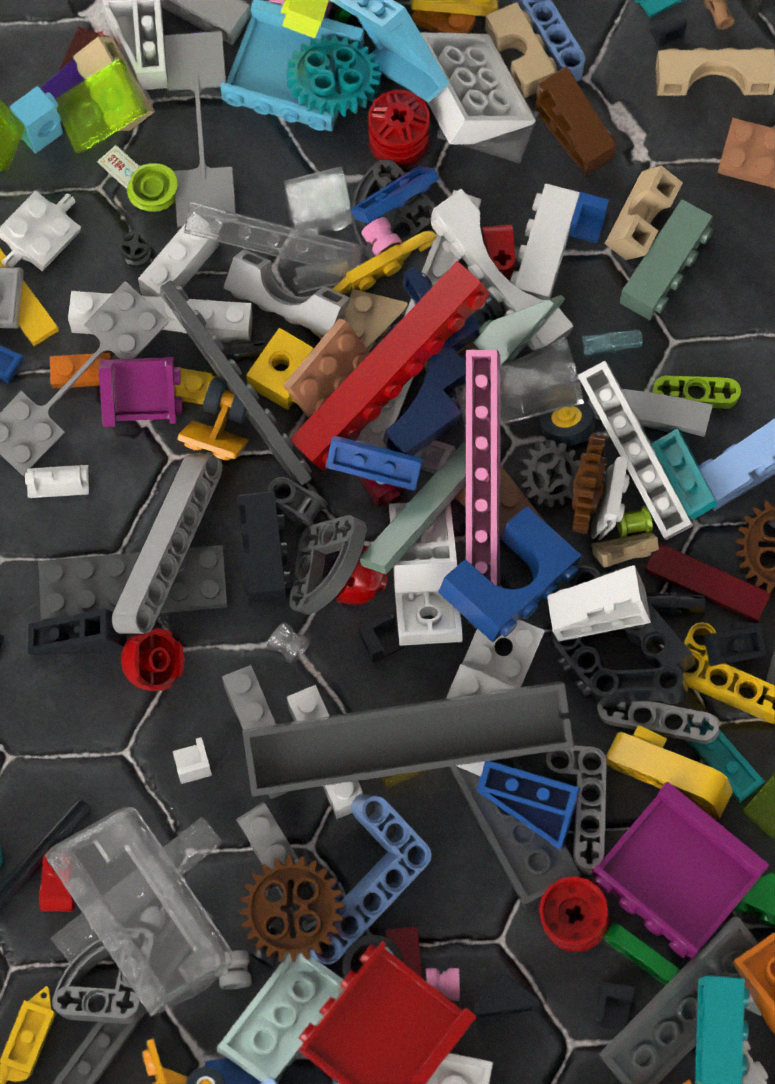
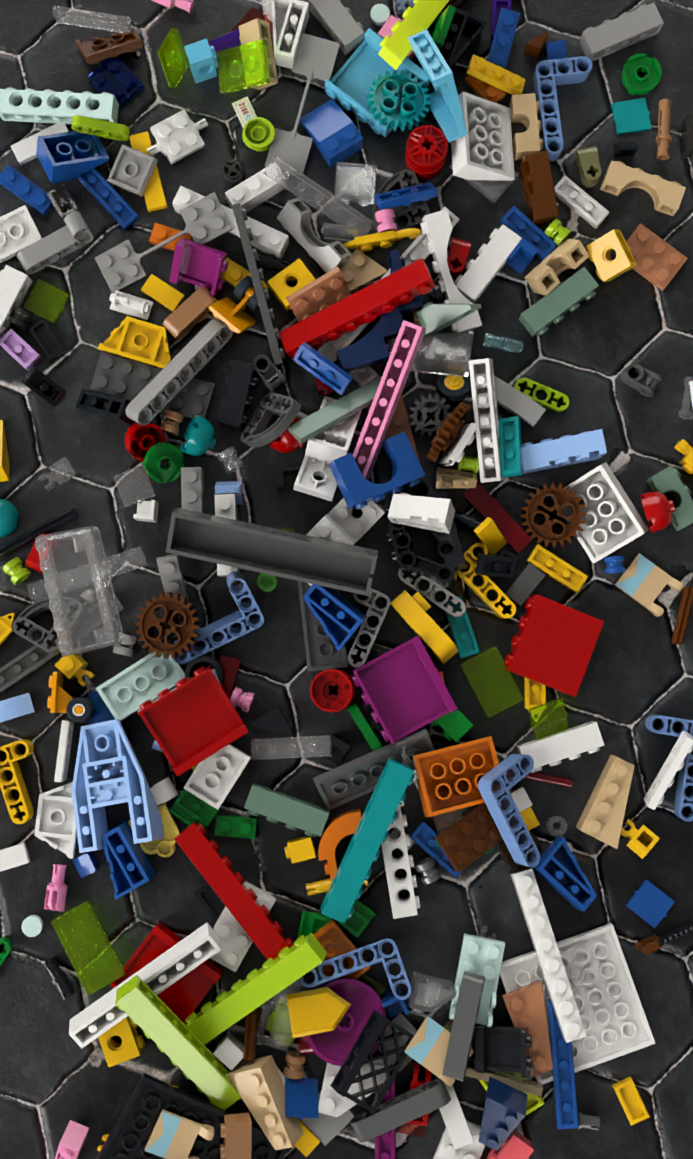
camera: 20 degrees right, 15 degrees up
(27, 922) = (16, 571): none -> lime wheel
(41, 755) = (60, 472): none -> clear plate
(89, 528) = (139, 342): none -> yellow wing
(97, 448) = (162, 293): none -> yellow tile
(148, 460) = (189, 313): none -> medium nougat beam
(159, 733) = (134, 486): none -> clear piece
(170, 1031) = (73, 667): none -> yellow brick
(176, 685) = (155, 455): none -> green plate
(181, 621) = (171, 422): none -> medium nougat wheel
(228, 626) = (198, 437): none -> teal cylinder
(256, 149) = (332, 132): none -> blue slope
(304, 681) = (230, 487): none -> light blue tile
(410, 798) = (267, 582): none -> bright green tile
(546, 1025) = (291, 747): none -> clear tile
(579, 179) = (526, 229): none -> blue plate
(617, 169) = (557, 232): none -> lime wheel
(629, 70) = (588, 165): none -> olive piece
(639, 120) = (580, 202): none -> white tile
(695, 172) = (600, 251): none -> yellow brick
(709, 607) = (490, 536): none -> yellow tile

